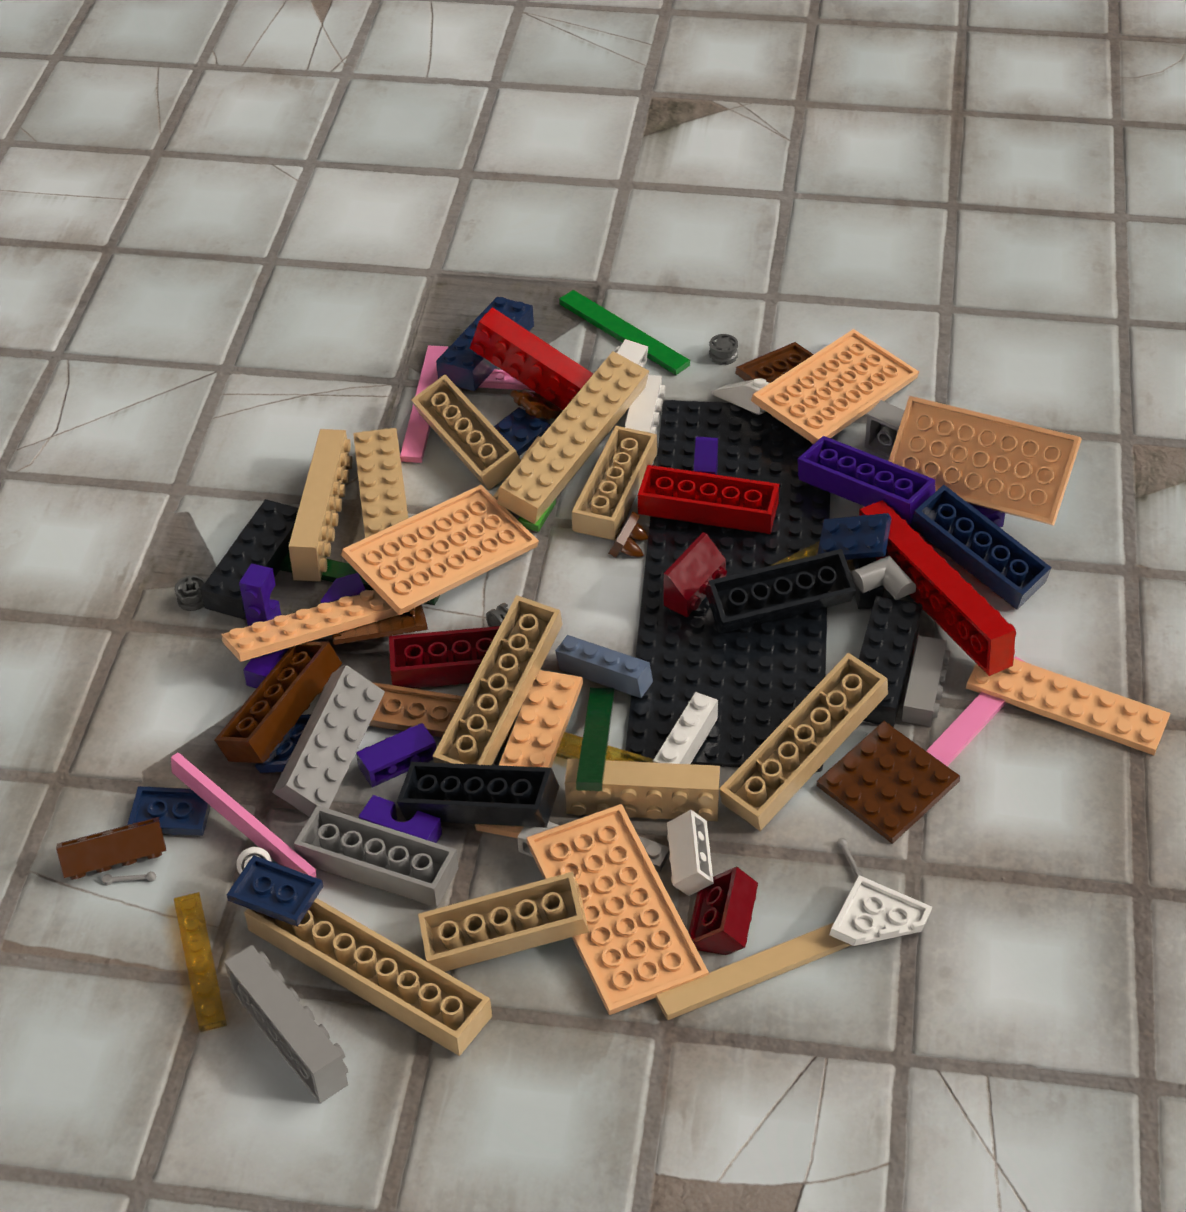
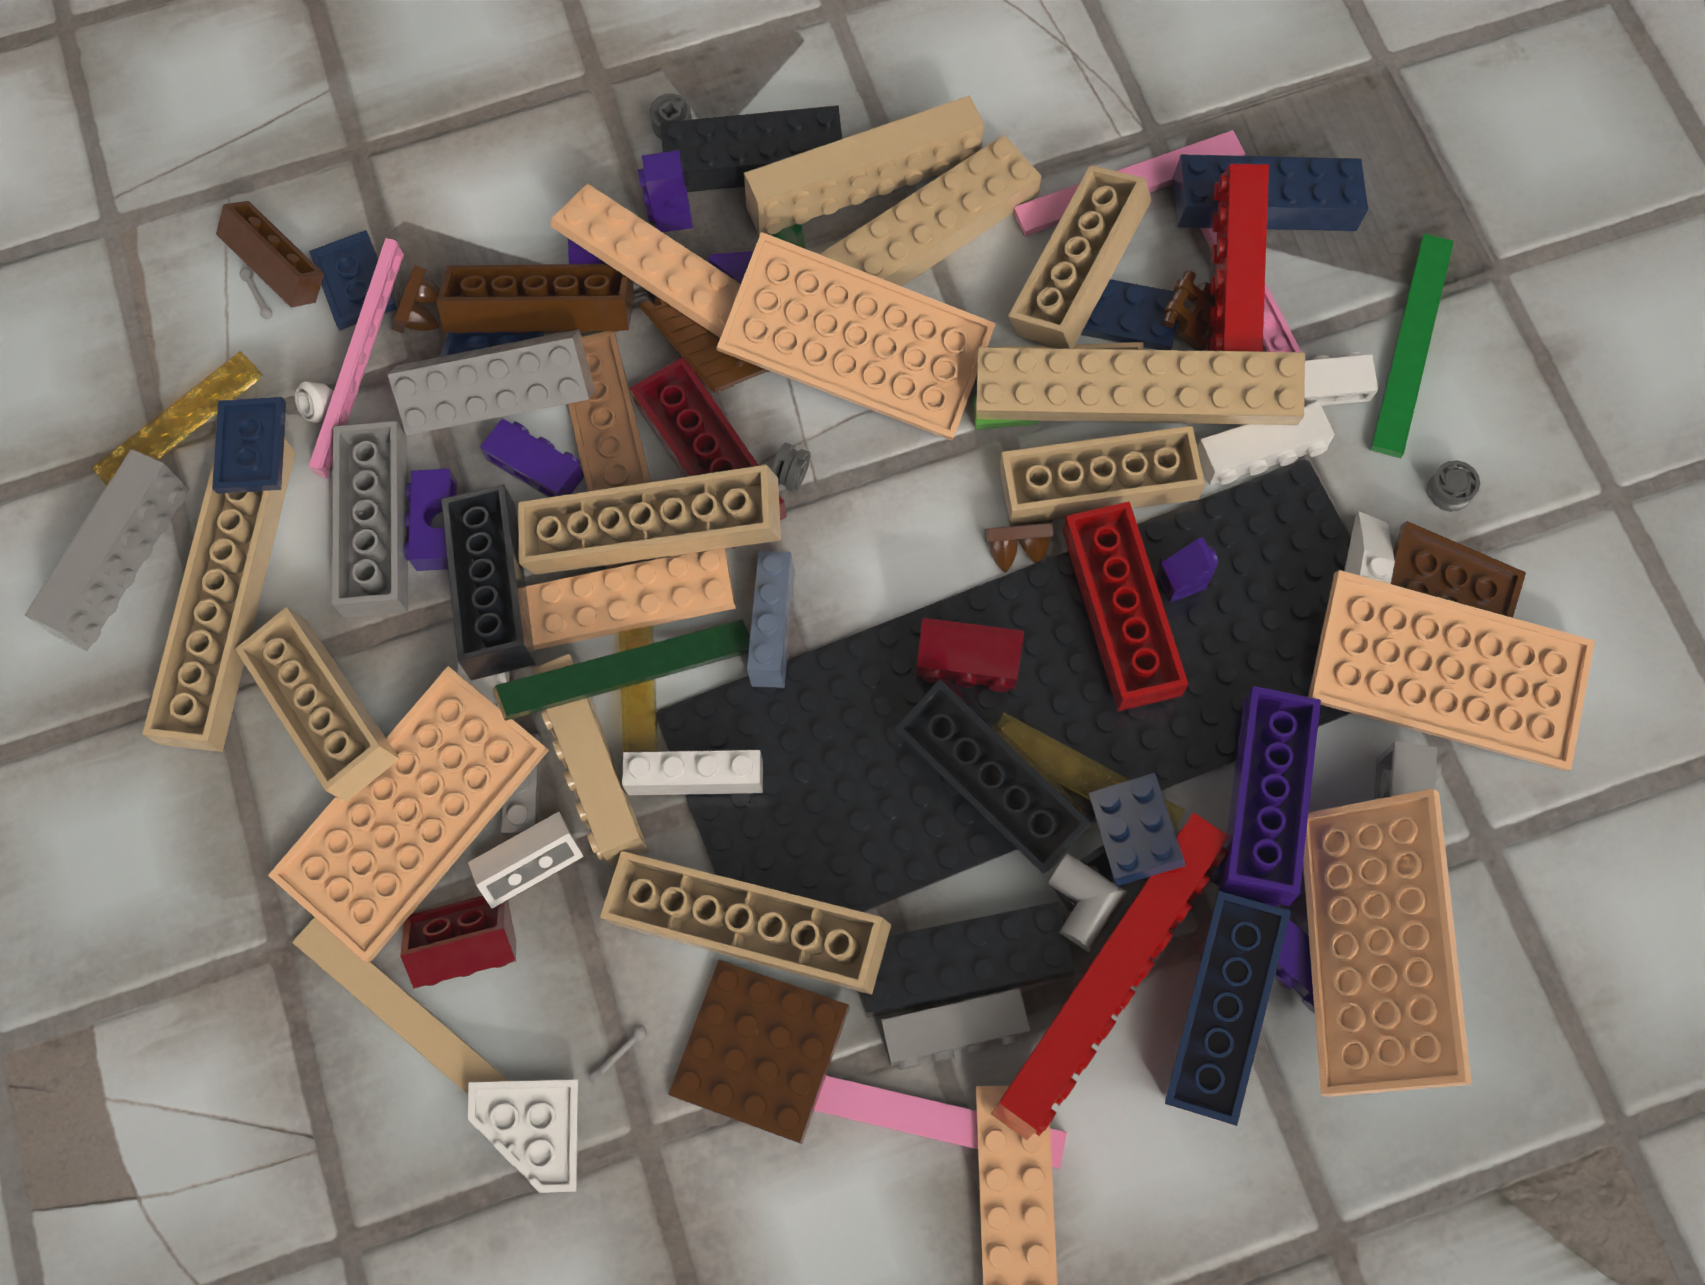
camera: 65 degrees right, 25 degrees up
(218, 775) = (412, 314): none -> reddish brown tile

